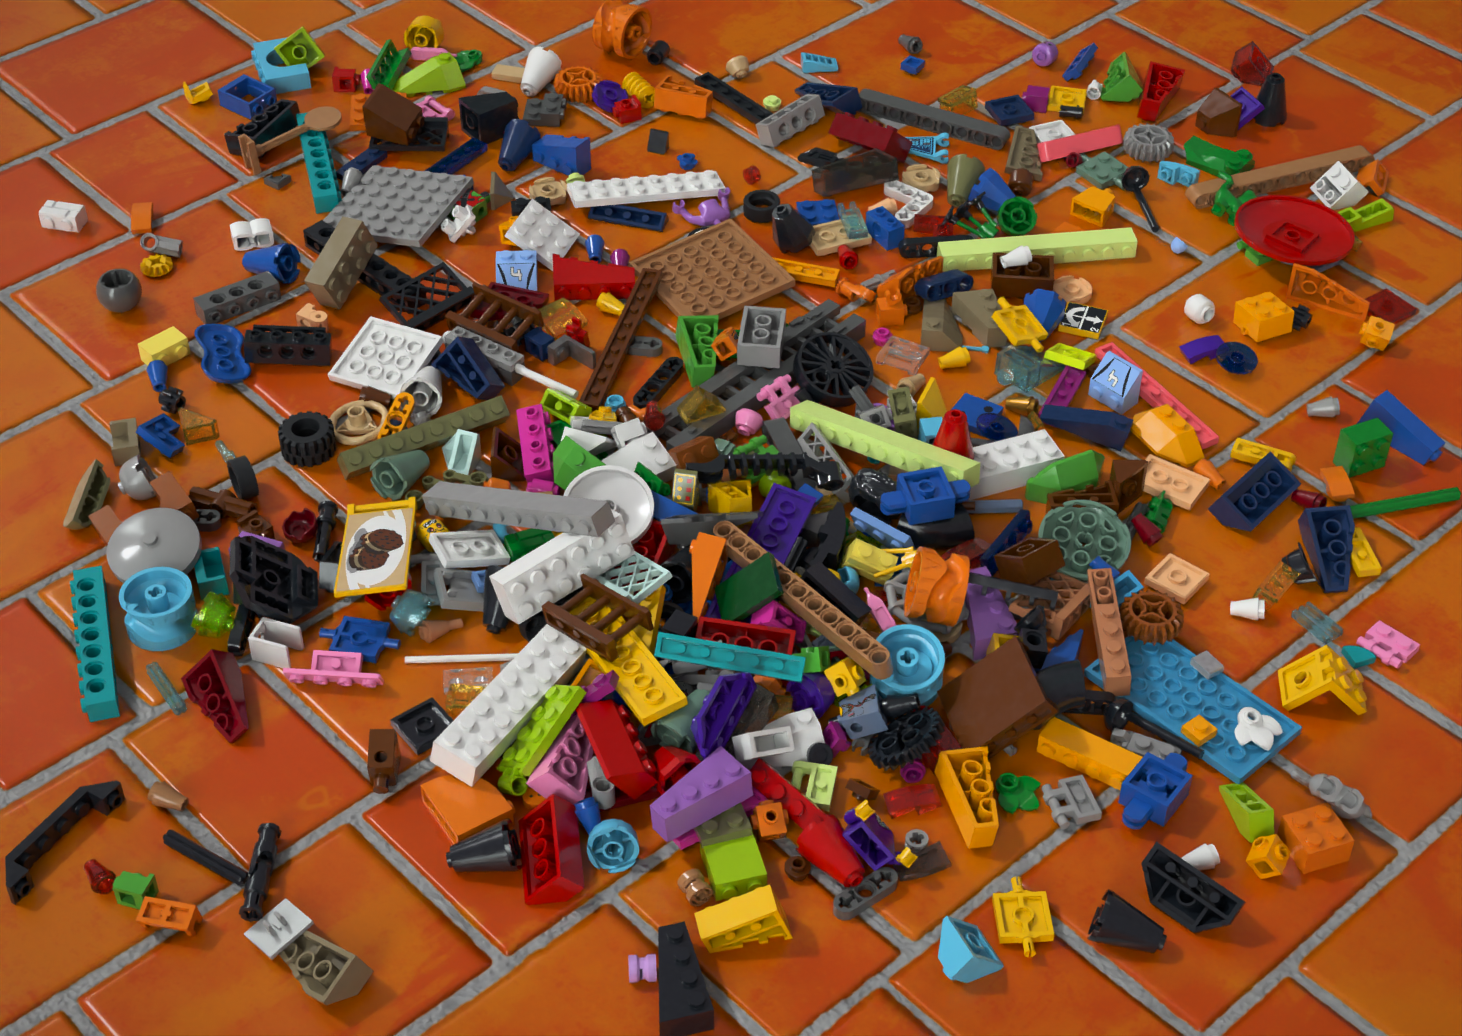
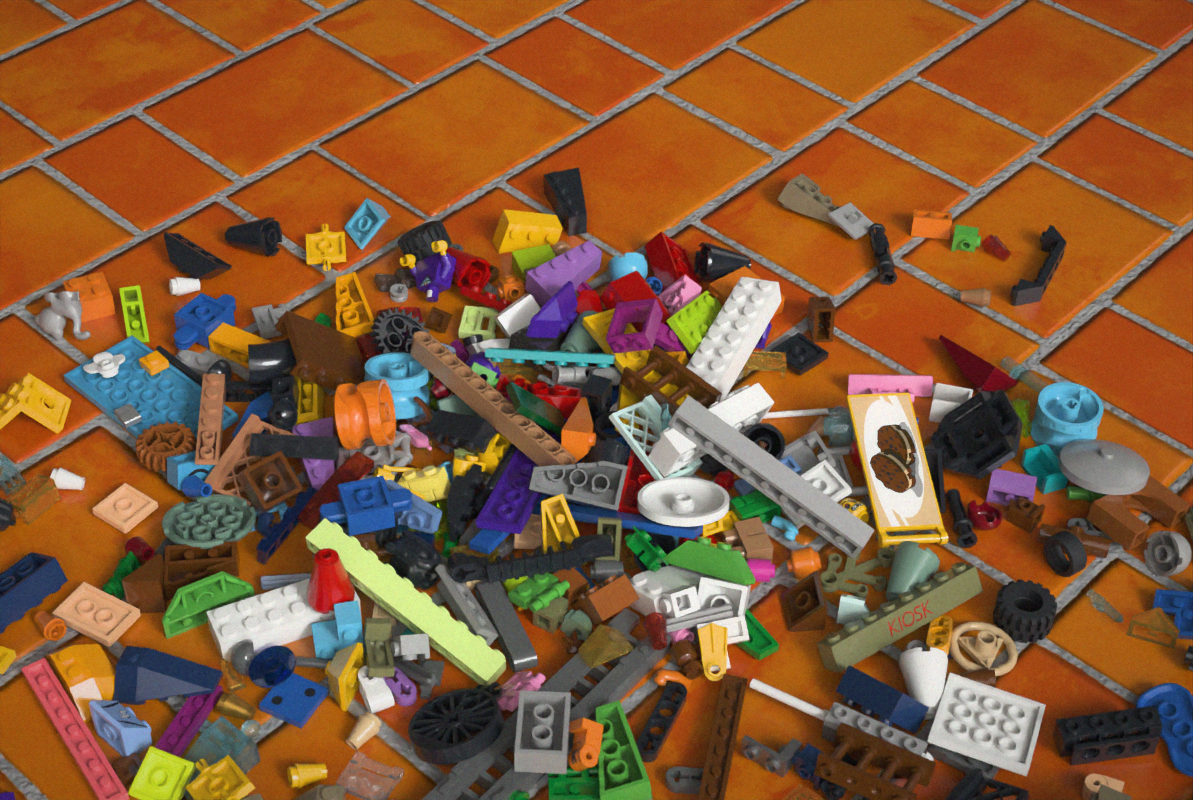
camera: 175 degrees right, 0 degrees up
(96, 644) = (1118, 415): teal brick -> none
(206, 857) = (928, 265): black axle -> none
(467, 676) = (779, 388): clear plate -> none
(535, 442) = (779, 609): dark pink brick -> none
(563, 406) = (758, 664): lime brick -> none
(577, 333) = (769, 774): red plate -> none
(610, 576) = (665, 416): none -> clear light blue piece
(615, 402) = (706, 687): medium azure plate -> none
(621, 674) = (626, 313): none -> magenta window
(642, 968) = (595, 209): lavender wheel -> none
(748, 421) = (550, 661): bright pink cone -> none
(903, 879) = (419, 239): none -> black tyre
(1268, 856) = (132, 277): light orange brick -> none

